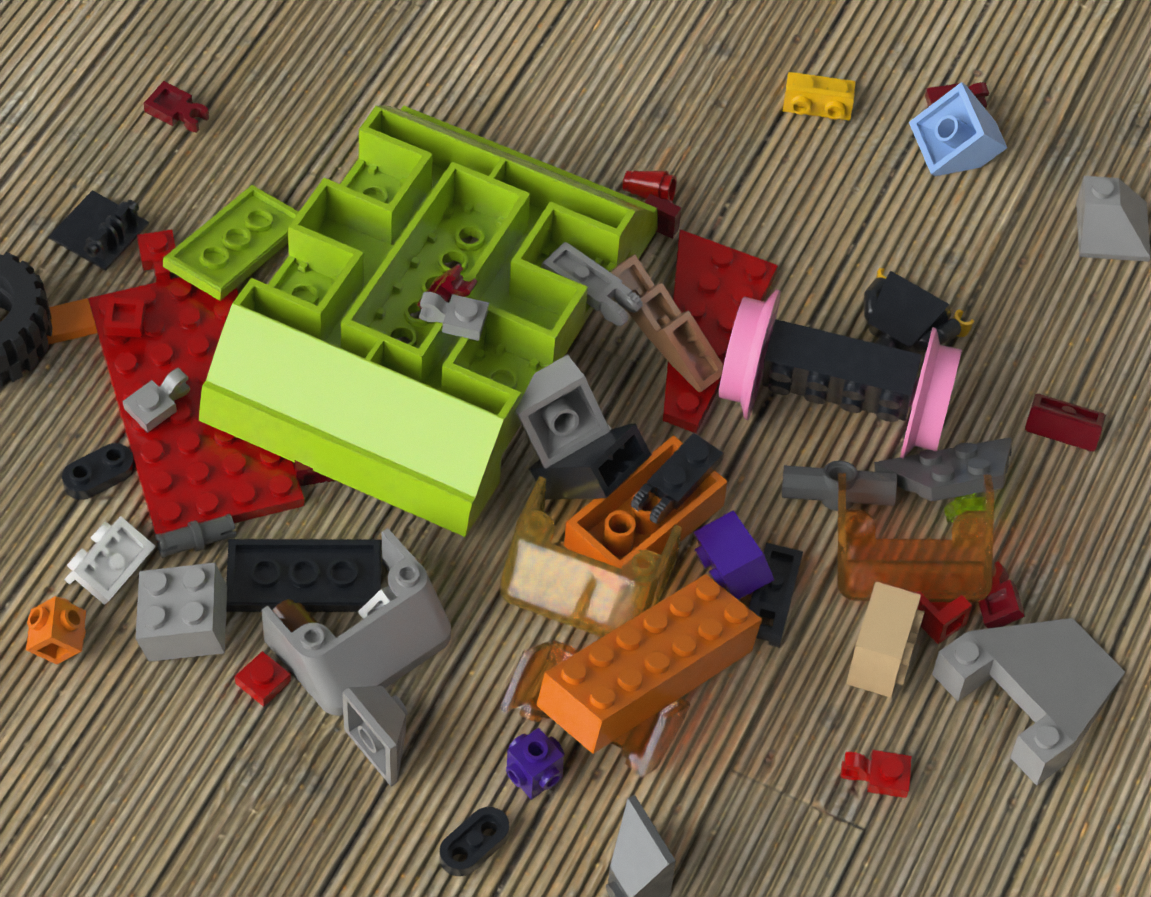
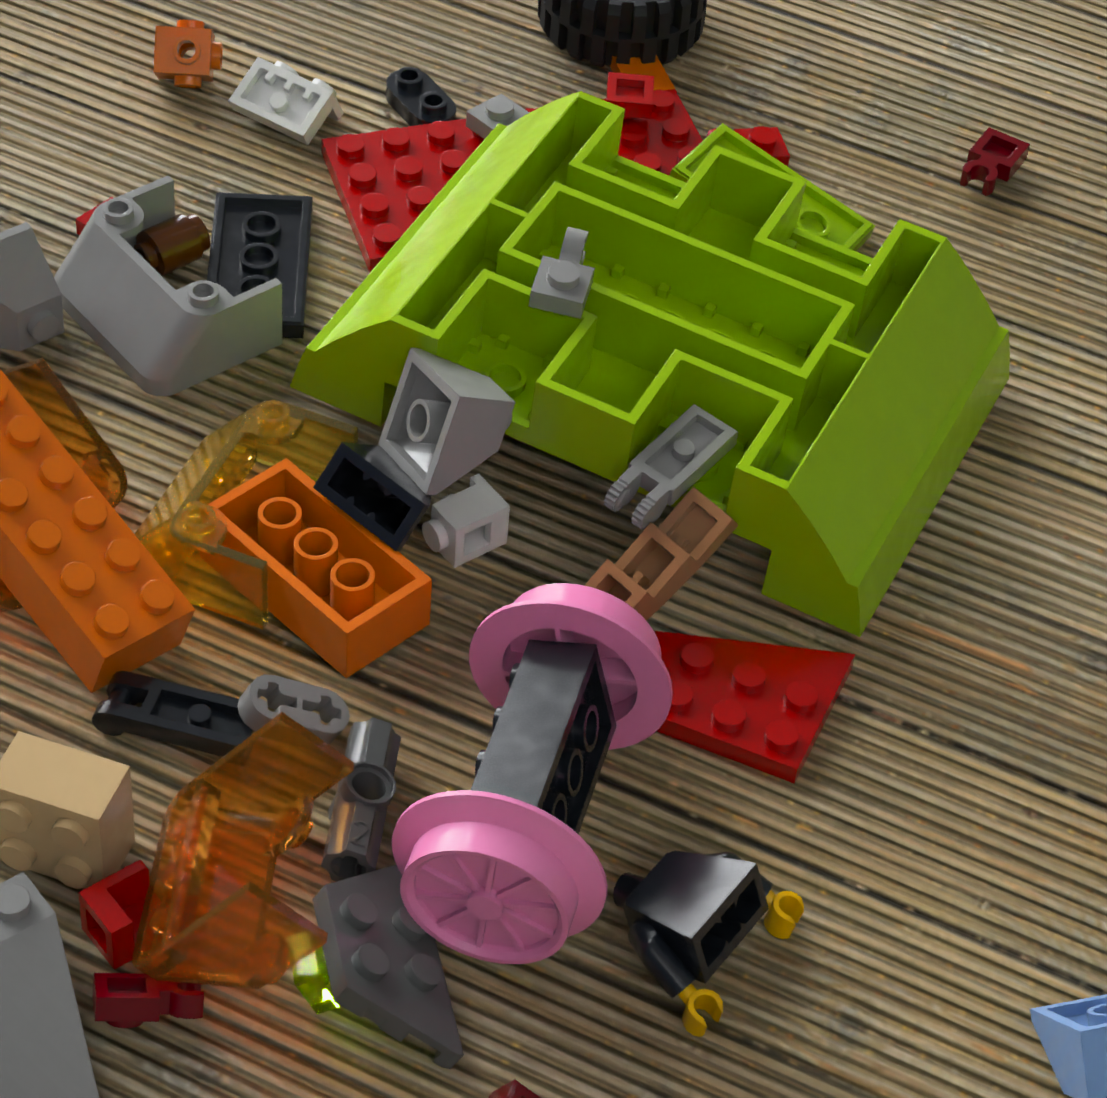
camera: 90 degrees right, 10 degrees down
(100, 229) = (783, 101): black hinge -> none
(181, 612) = (197, 141): light grey brick -> none
(195, 535) = (318, 169): dark grey pin -> none
(451, 283) = (624, 281): dark red plate -> none
(650, 182) = (934, 627): red cone -> none
(668, 215) = (875, 630): dark red plate -> none
(678, 477) = (346, 568): black hinge -> none
(733, 556) = (228, 649): dark purple brick -> none
(769, 525) = (297, 702): none -> light grey beam

